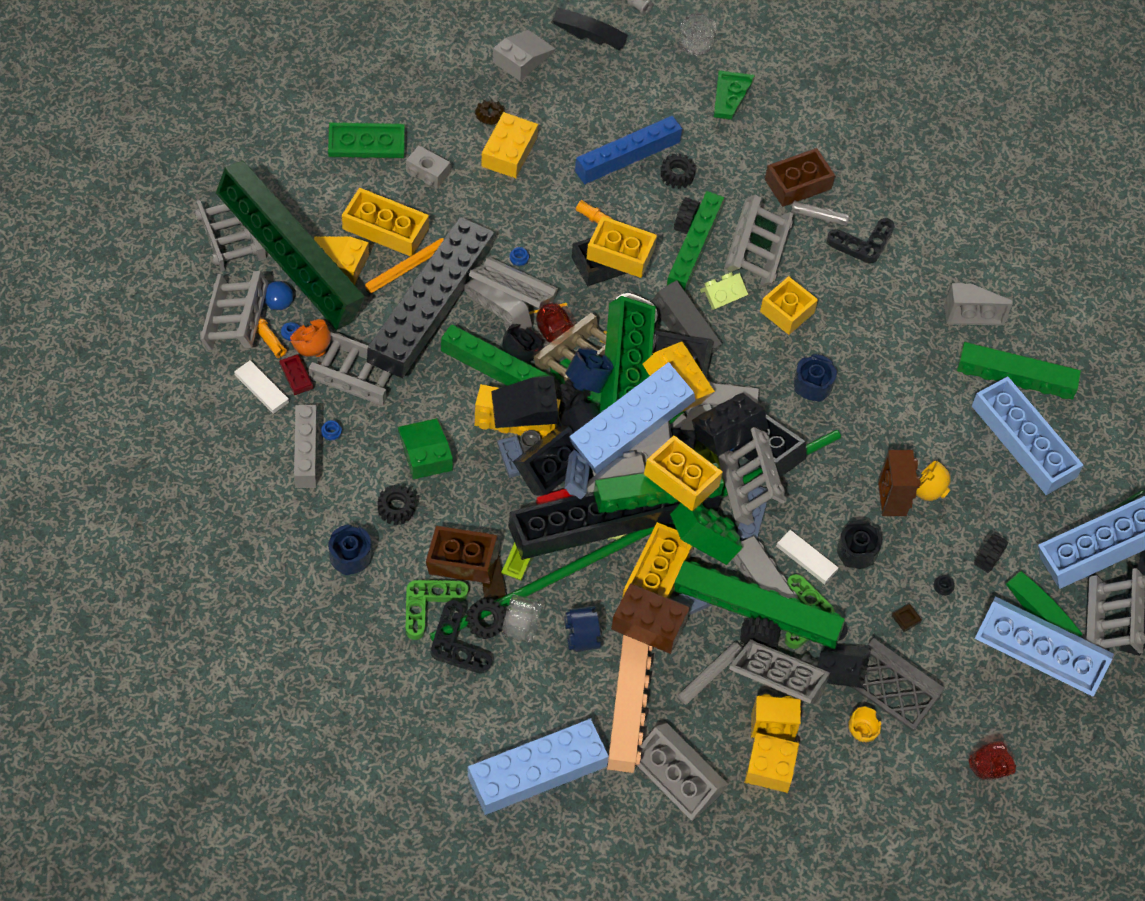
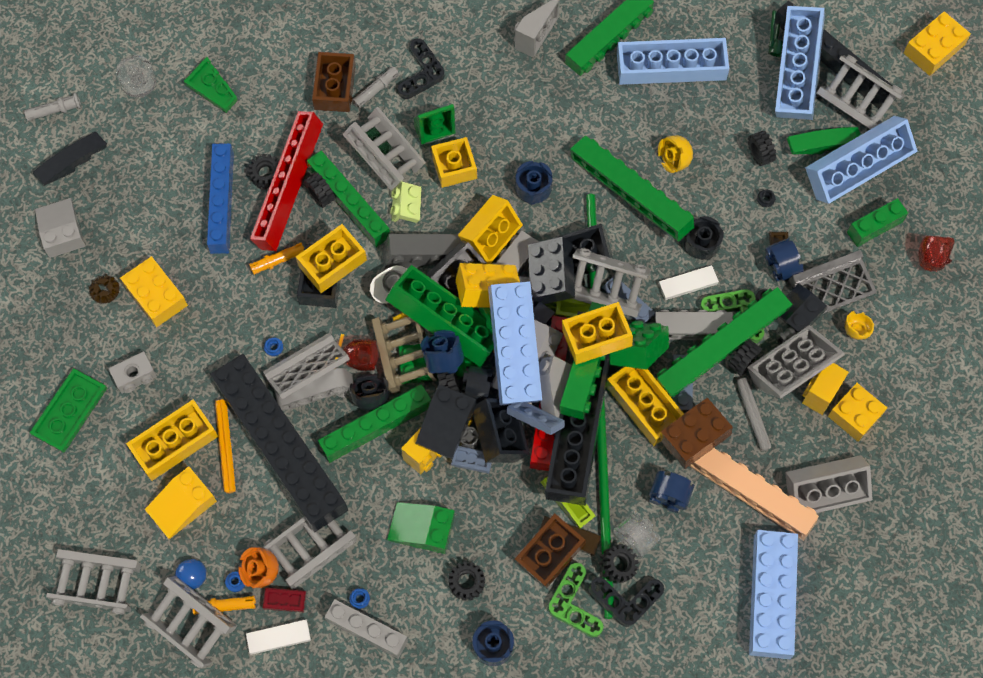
camera: 55 degrees left, 10 degrees up
(289, 244) = (150, 537): dark green brick -> none
(675, 187) = (286, 181): none -> red brick
(740, 362) = (491, 228): none -> yellow brick
(814, 270) = (435, 124): none -> green slope
(864, 458) = (632, 188): none -> green brick
(885, 623) = (784, 259): none -> dark blue brick
(898, 482) = (672, 175): reddish brown brick -> none
(988, 695) = (877, 222): none -> green brick

